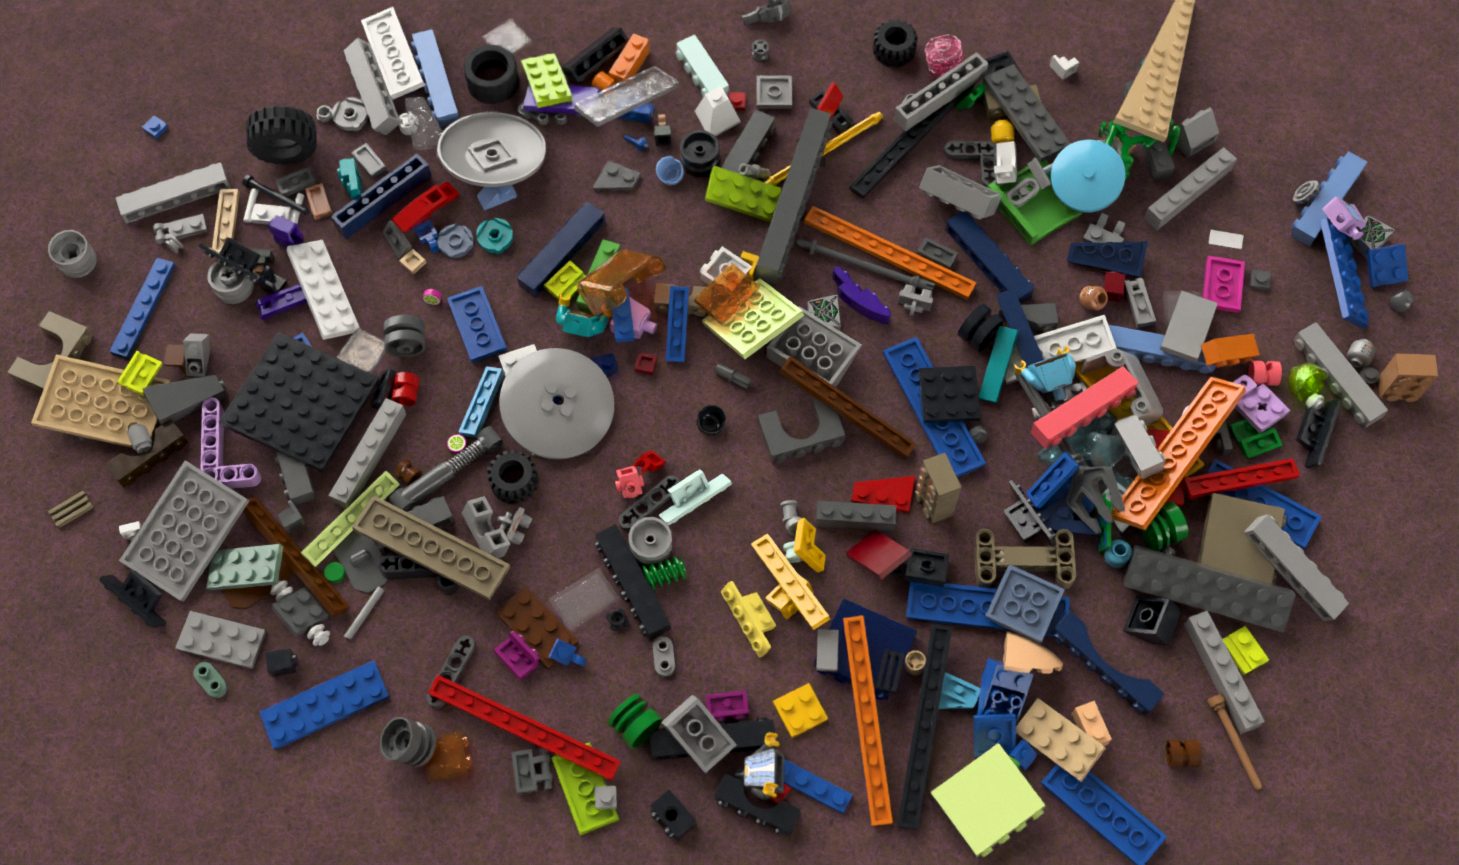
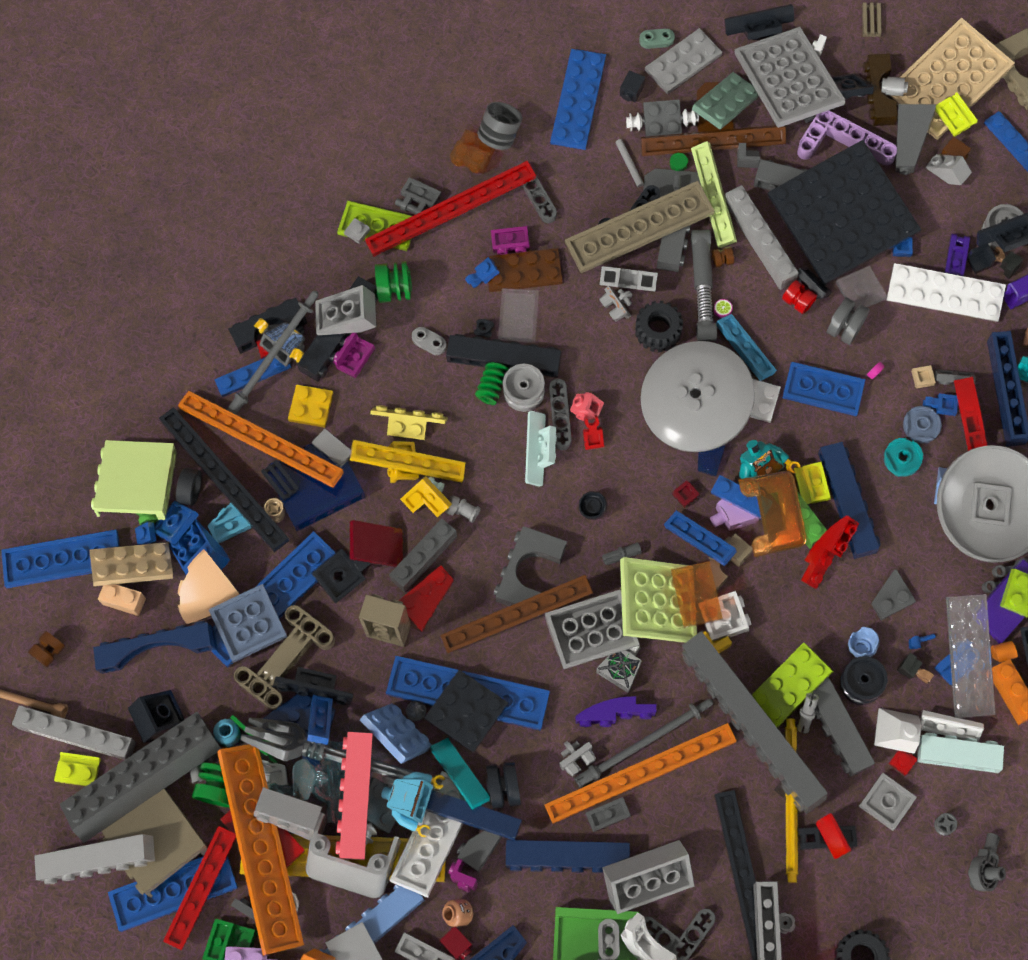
camera: 130 degrees right, 5 degrees up
(159, 474) = (852, 85): none -> black plate
(610, 231) = (831, 543): none -> red slope
(669, 803) = (316, 271): black brick -> none
(686, 84) = (950, 725): none -> white tile
(841, 771) = (242, 397): none -> dark grey bar
(955, 747) = (188, 486): none -> black tyre
(1011, 424) = (396, 732): none -> medium blue plate
(1068, 308) = (463, 881): none -> magenta bracket

